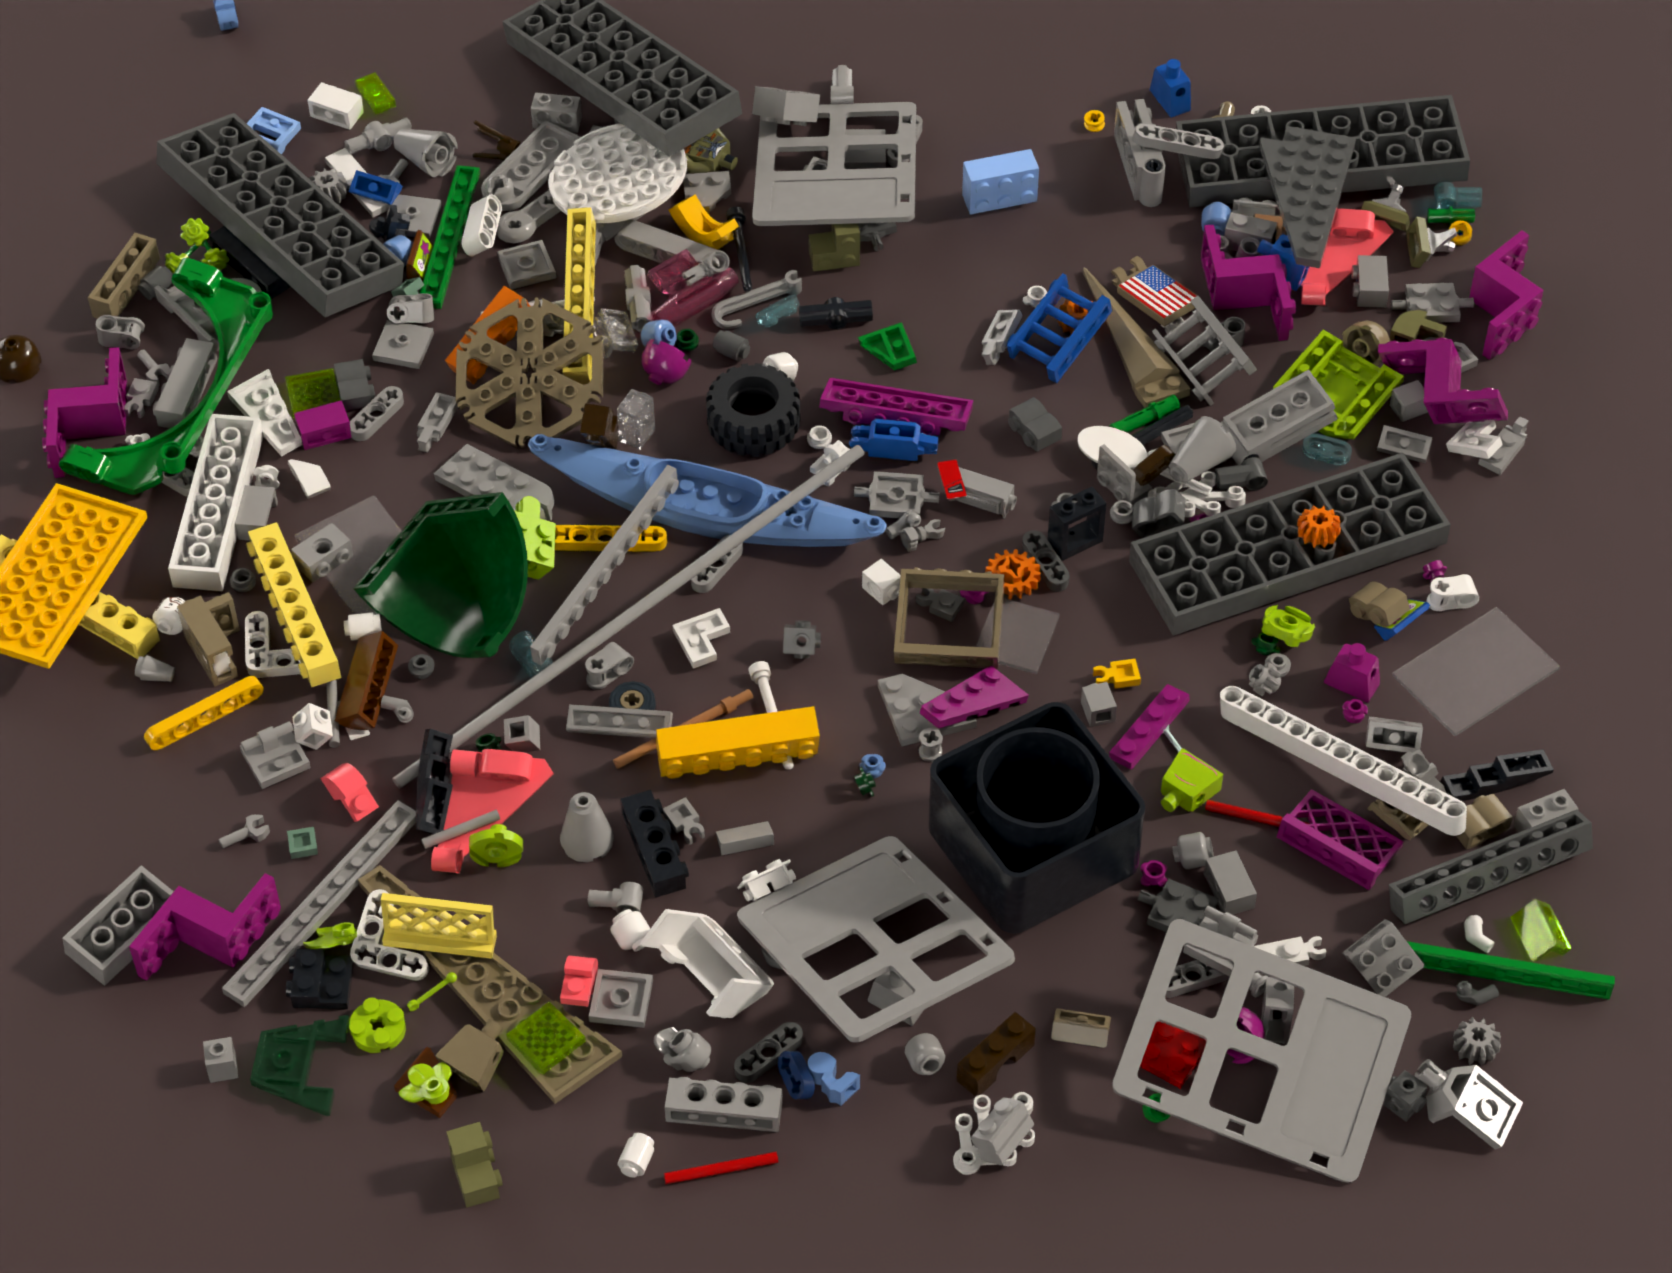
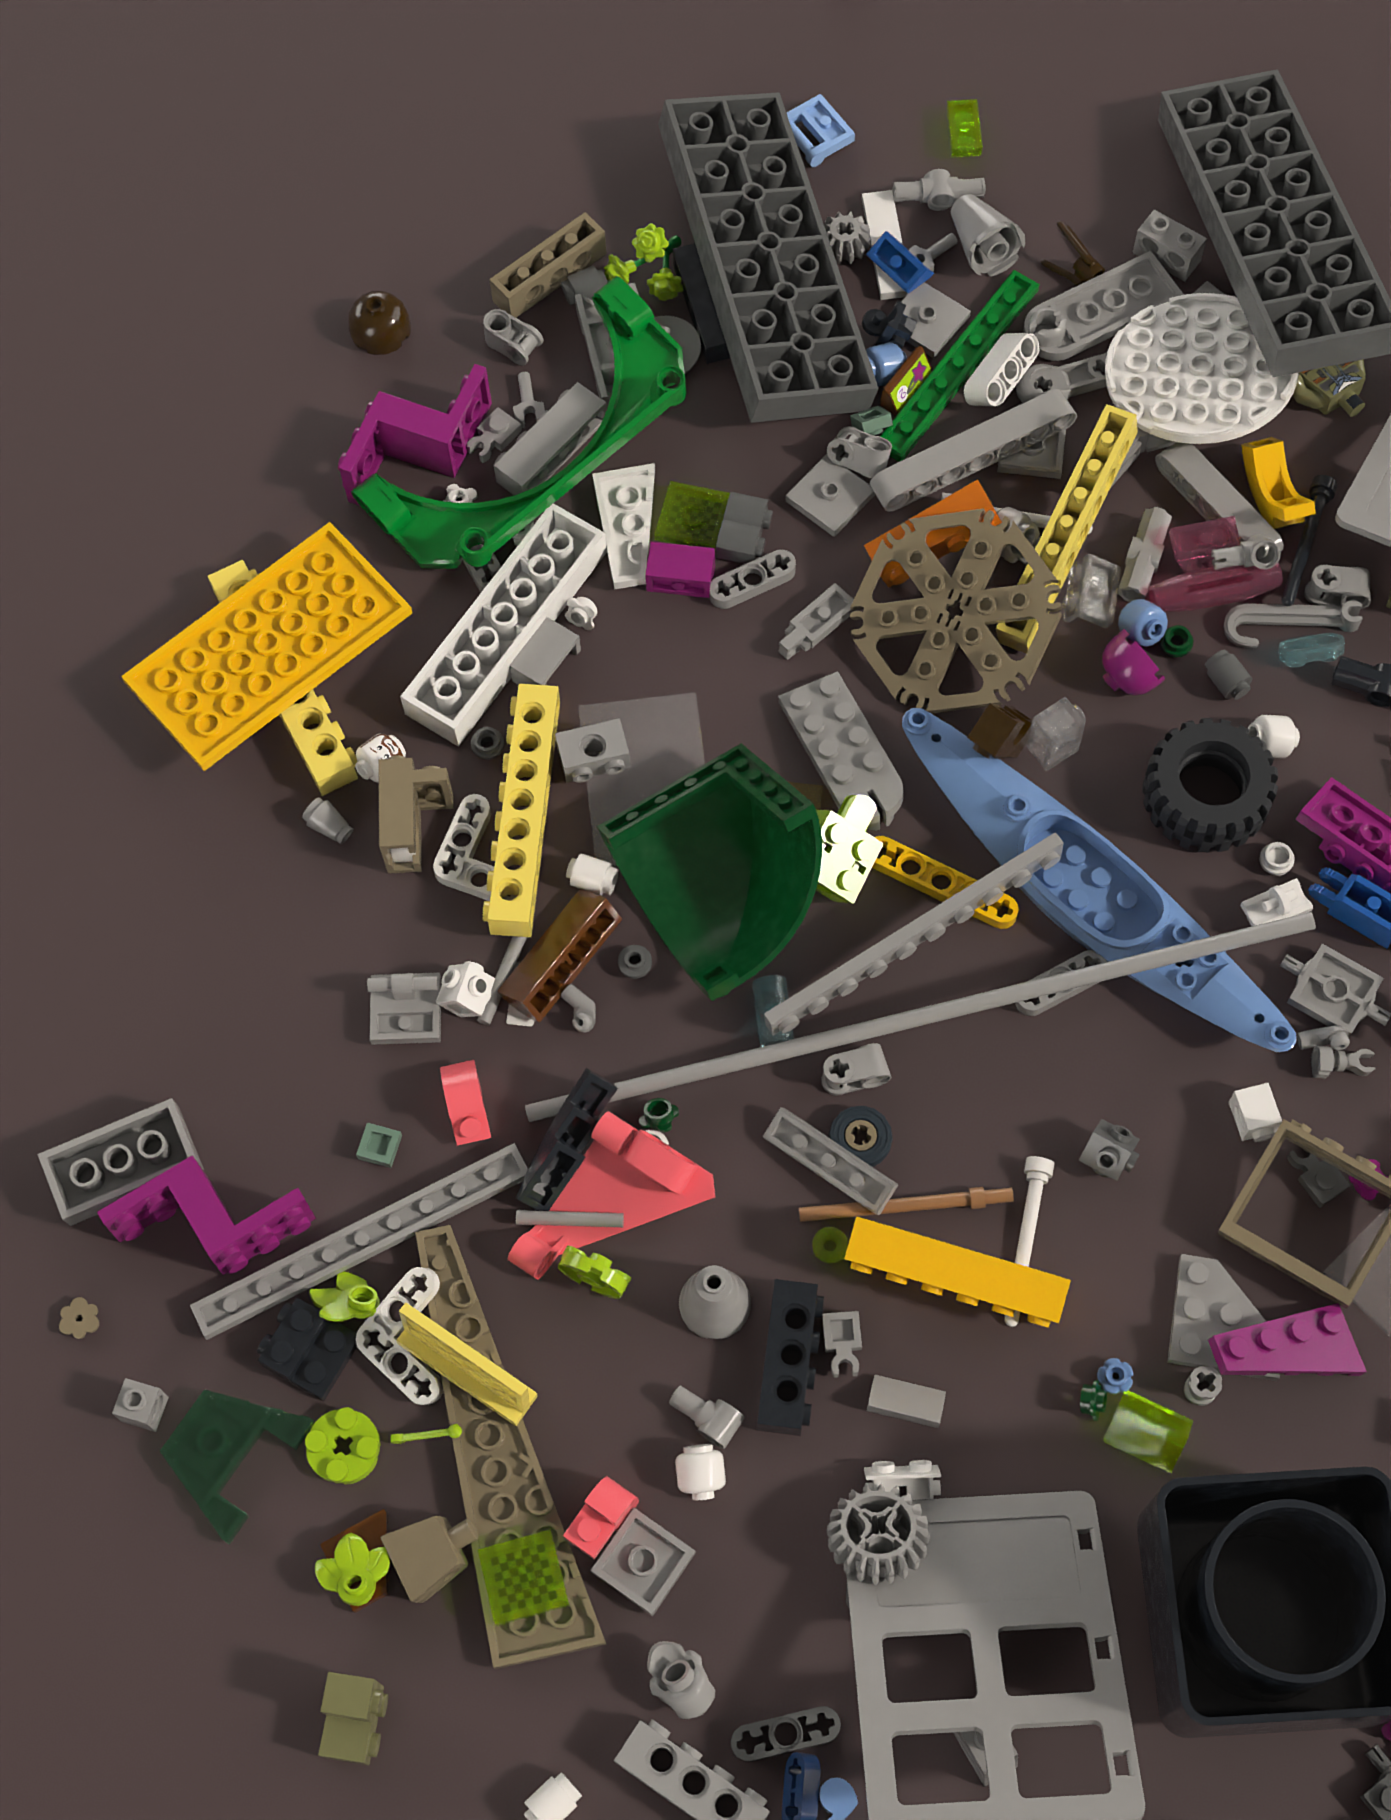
camera: 30 degrees right, 15 degrees up
(144, 1033) = (70, 1314): none -> dark tan plant
(168, 732) = (354, 908): yellow beam -> none
(248, 831) = (325, 1095): light grey bar -> none
(310, 477) = (632, 635): white slope -> none
(335, 106) = (908, 127): white brick -> none
(488, 278) = (973, 450): none -> light grey beam
(522, 734) = (702, 1124): light grey brick -> none
(645, 765) = (830, 1234): none -> clear neon green plate
(695, 636) = (984, 1074): white plate -> none
(708, 187) = (1307, 431): light grey plate -> none
(712, 958) = (785, 1573): white windscreen -> none
(767, 907) = (883, 1552): none -> light grey gear
(775, 267) = (1339, 585): none -> light grey piece
(906, 786) = (1148, 1431): none -> clear neon green panel

